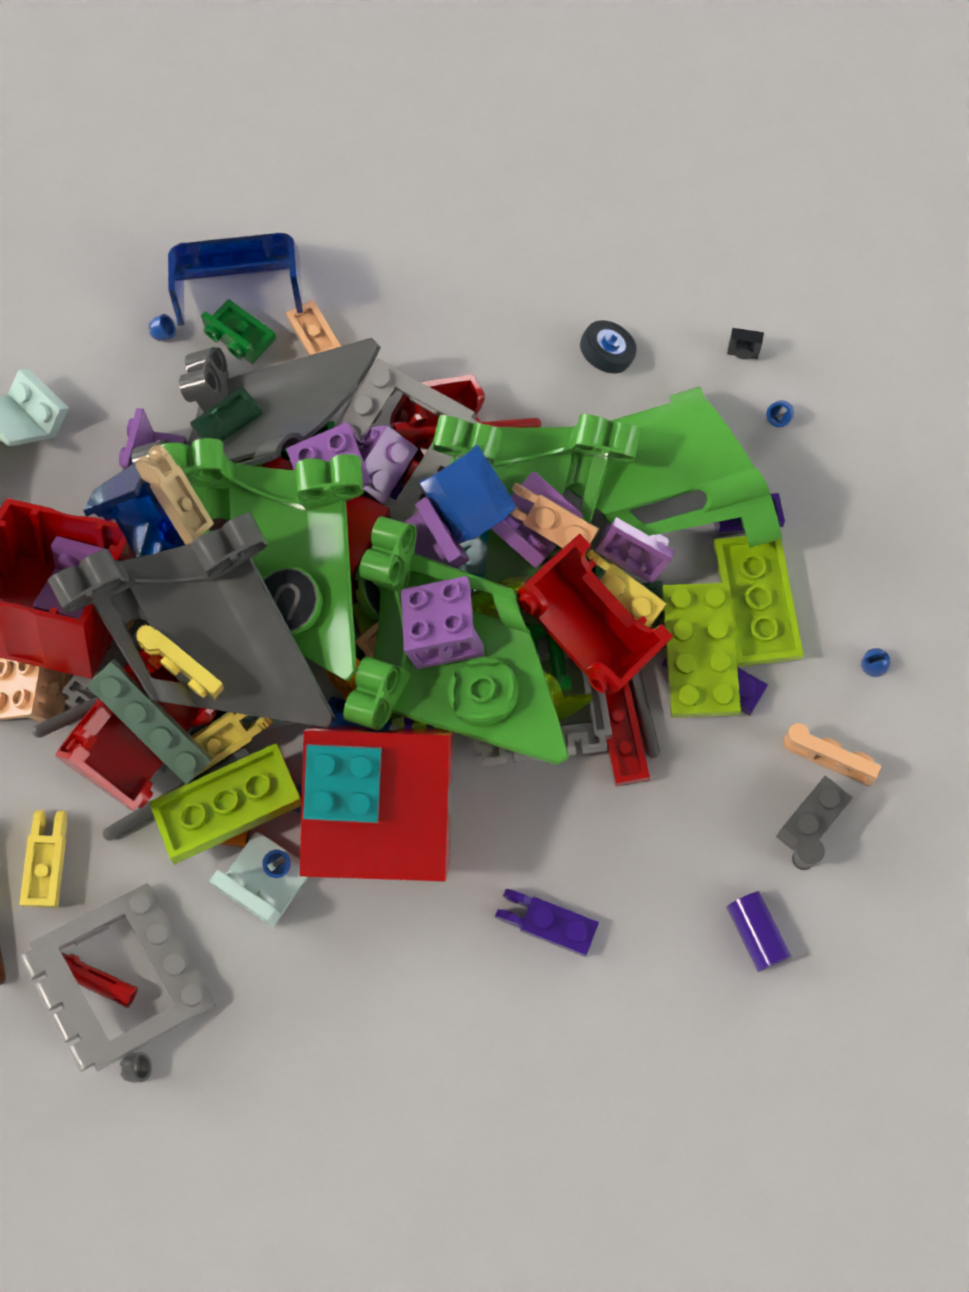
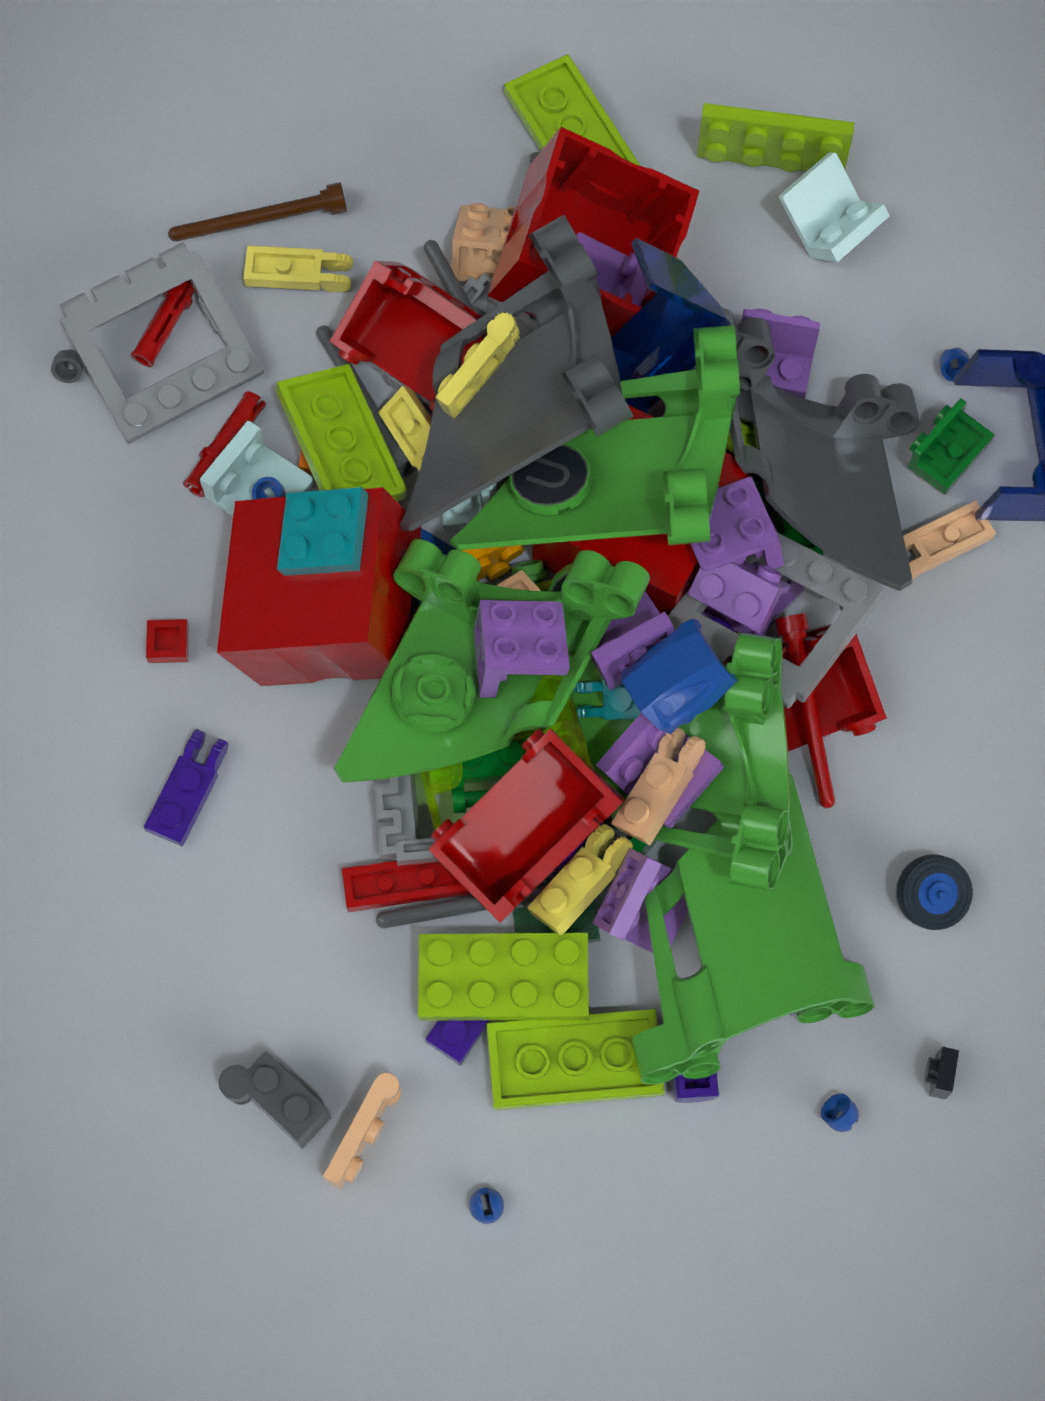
camera: 90 degrees right, 0 degrees up
(149, 721) = (415, 365): sand green plate -> none
(174, 493) = (667, 344): tan hinge -> none
(227, 416) = (817, 428): clear green plate -> none
(233, 919) = (245, 410): none -> red pin
(413, 948) = (167, 641): none -> red plate
(758, 931) = (155, 1027): dark purple brick -> none

